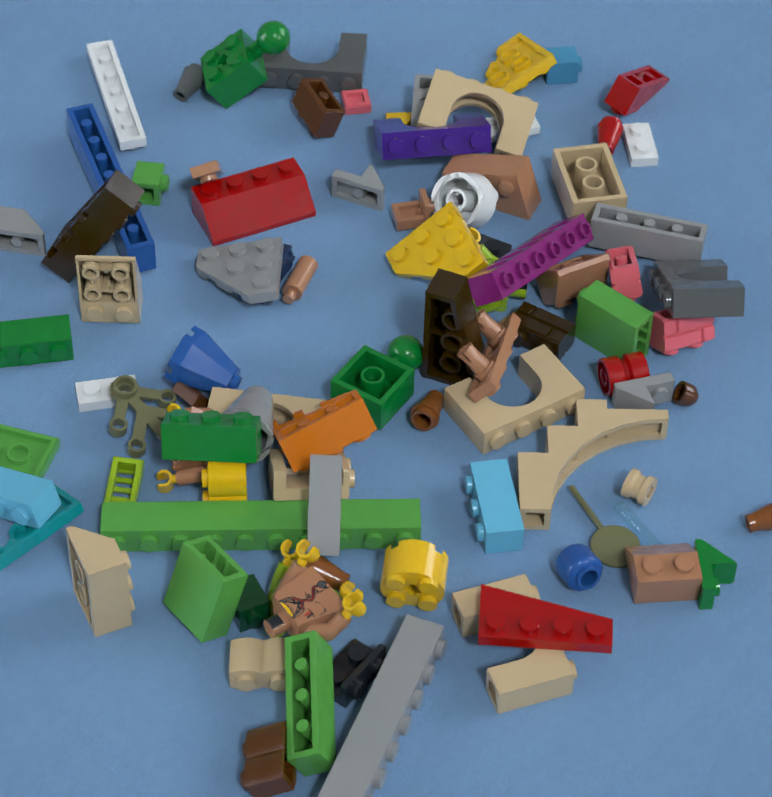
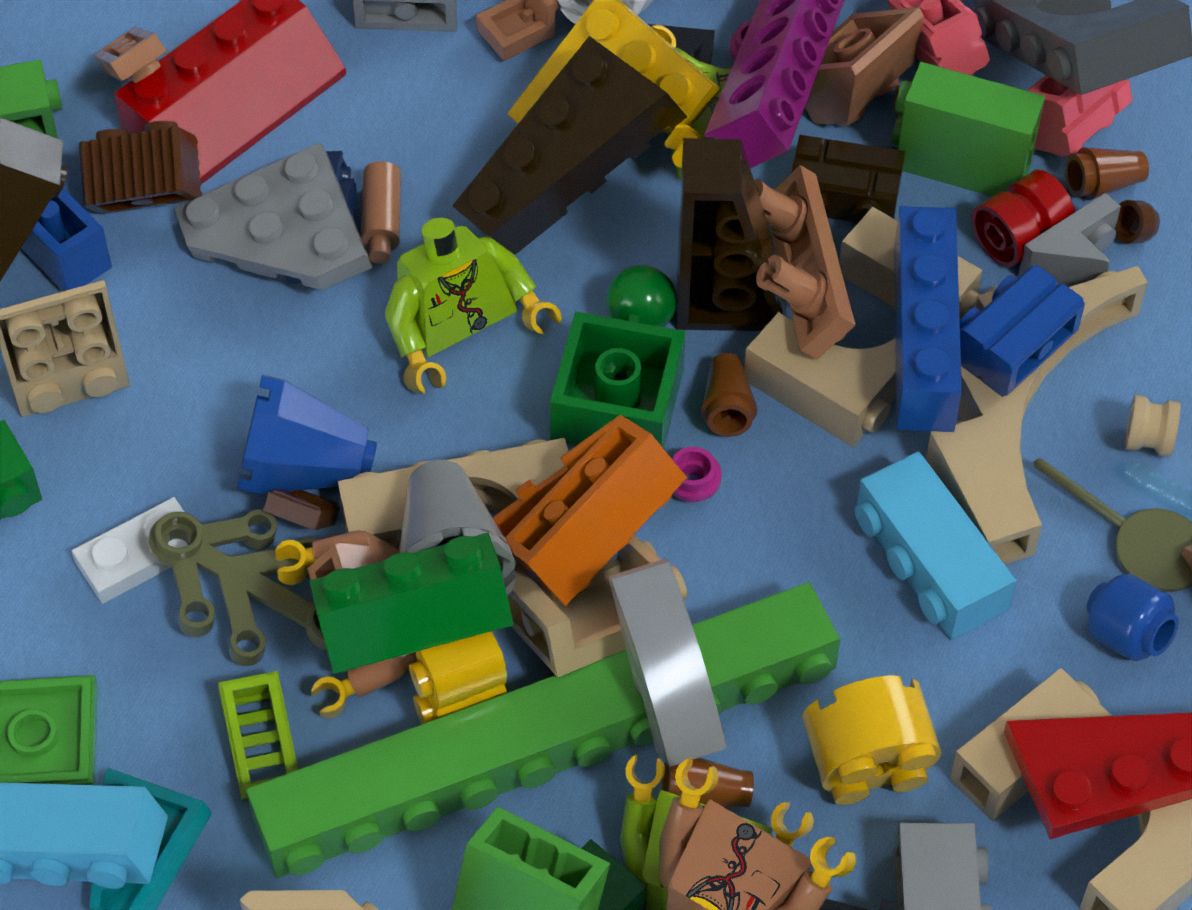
camera: 20 degrees left, 10 degrees up
(187, 224) = (139, 168): none -> reddish brown brick
(312, 322) = (453, 291): none -> lime torso
(392, 440) = (702, 464): none -> dark pink plate
(395, 270) = (566, 145): none -> dark brown wedge
(538, 397) = (927, 319): none -> blue brick
(583, 416) = (1018, 328): none -> blue brick
(682, 365) = (1104, 171): none -> dark orange cone

